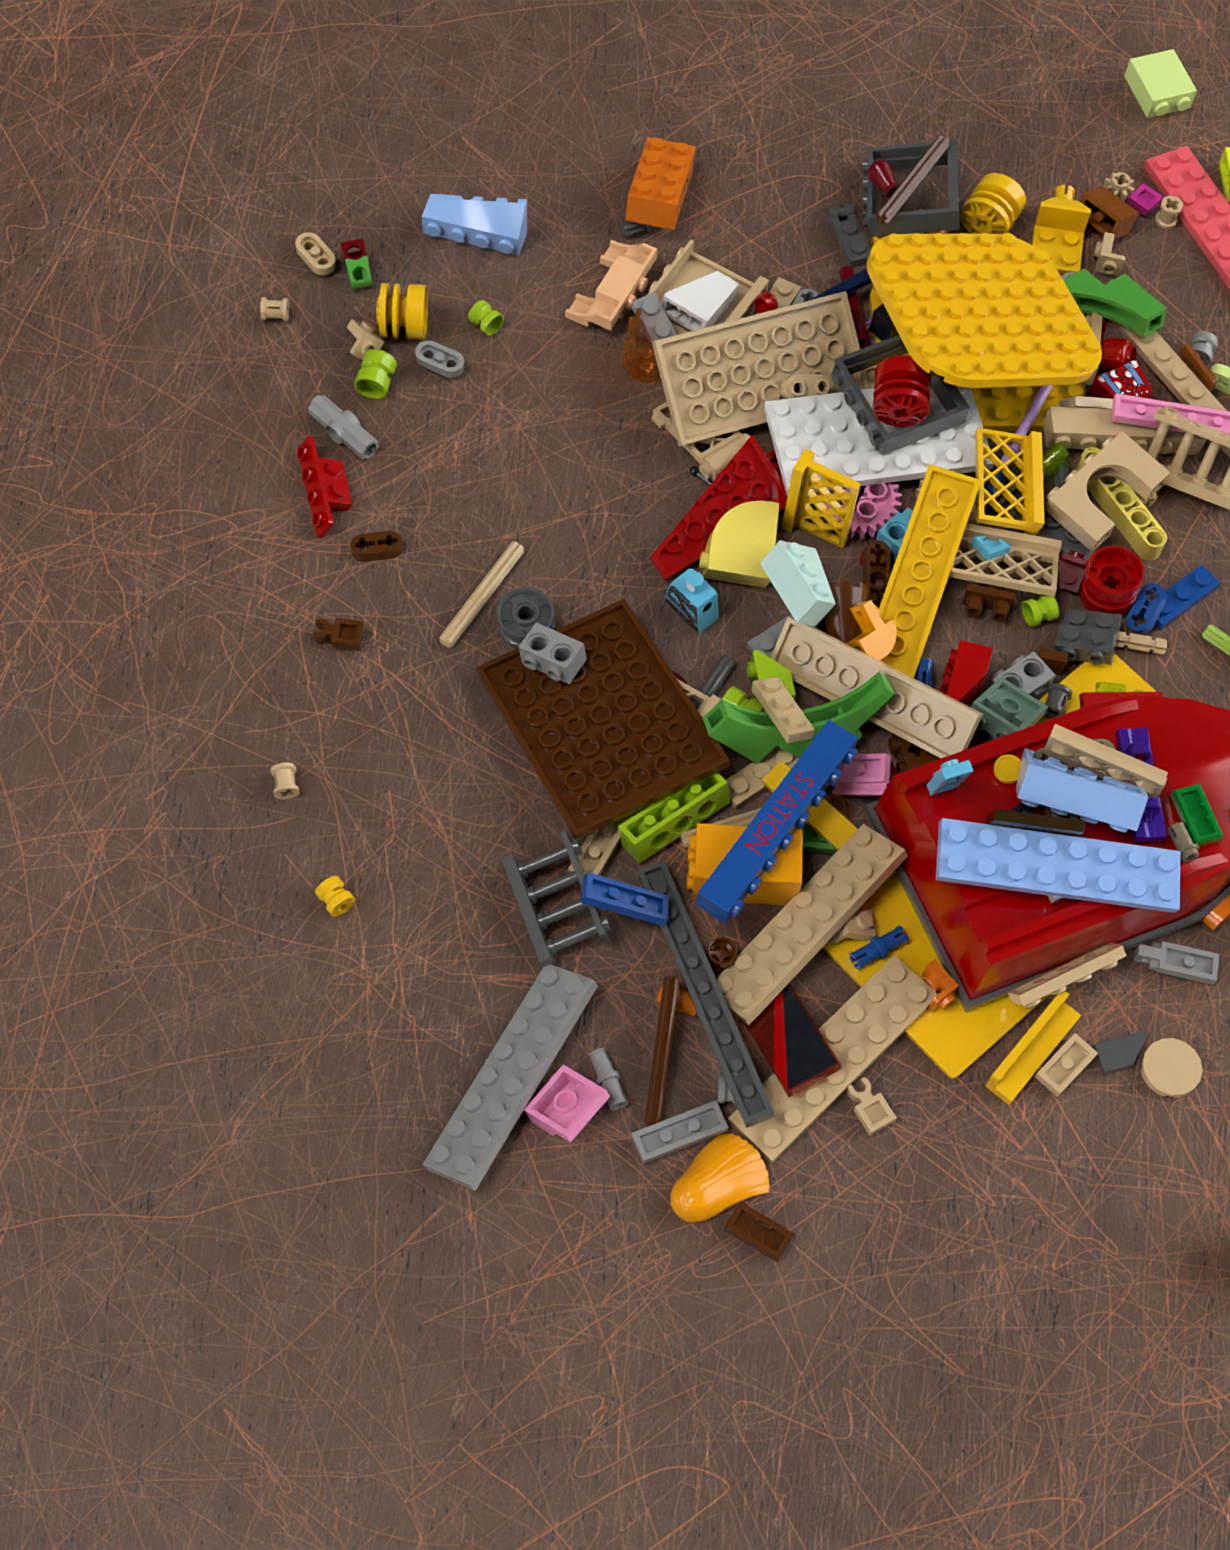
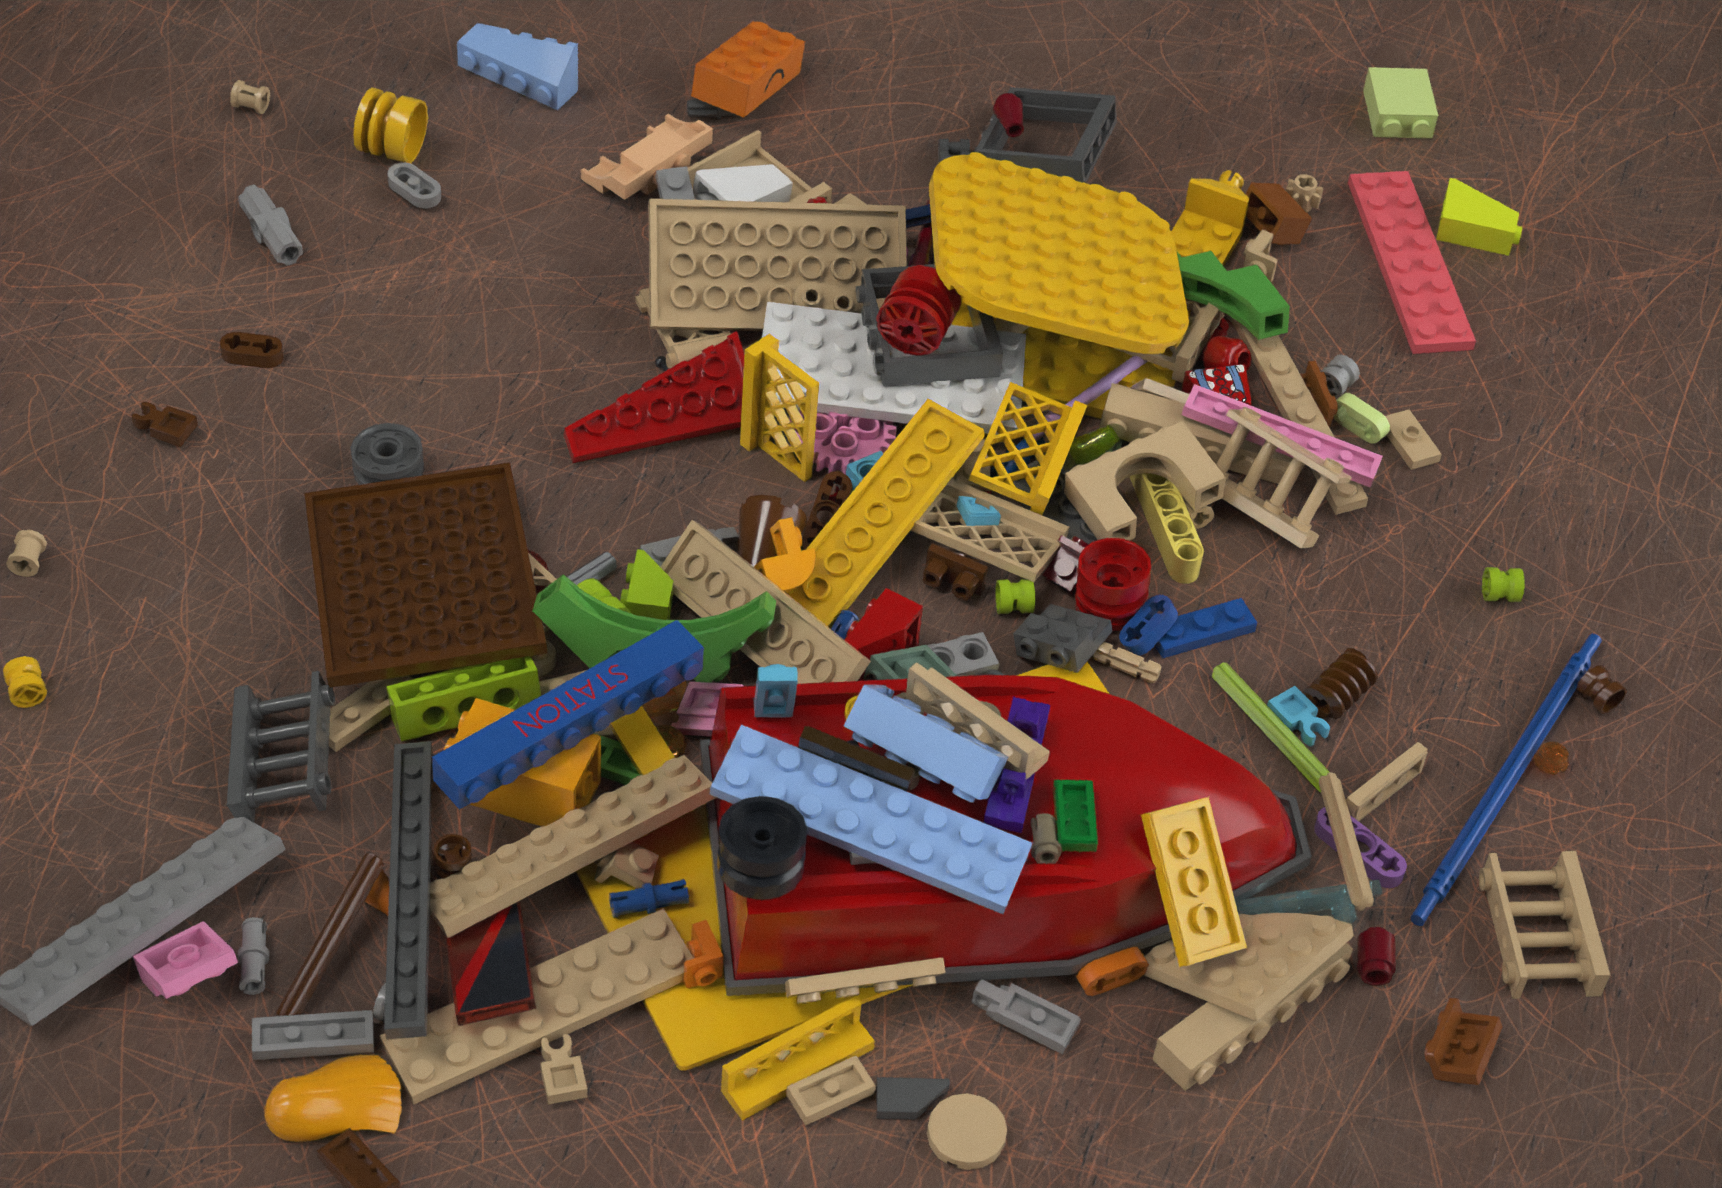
camera: 15 degrees right, 15 degrees down
(319, 257) = (323, 55): tan plate -> none
(324, 485) = (222, 277): red bracket -> none
(356, 264) = (362, 75): bright green leg -> none
(366, 338) = (336, 148): tan bracket -> none
(375, 374) = (331, 181): lime wheel -> none
(481, 594) = (349, 425): tan axle -> none
(485, 317) = (486, 157): lime wheel -> none
(554, 649) = (394, 492): light grey brick -> none
(625, 899) = (355, 759): blue plate -> none
(641, 359) = (637, 223): clear orange bracket -> none
(691, 596) = (589, 474): medium azure torso -> none
(741, 543) = (676, 441): light yellow brick -> none
(782, 710) = (636, 607): tan plate -> none
(799, 581) = (720, 484): light aqua wedge -> none
(912, 180) = (1042, 122): axle -> none
(993, 205) = (1138, 168): yellow wheel -> none
(993, 915) = (761, 847): none -> black wheel
(1054, 660) = (1007, 651): reddish brown tile -> none
(1144, 200) = (1331, 213): dark pink plate -> none
(1167, 216) = (1355, 231): tan bush -> none

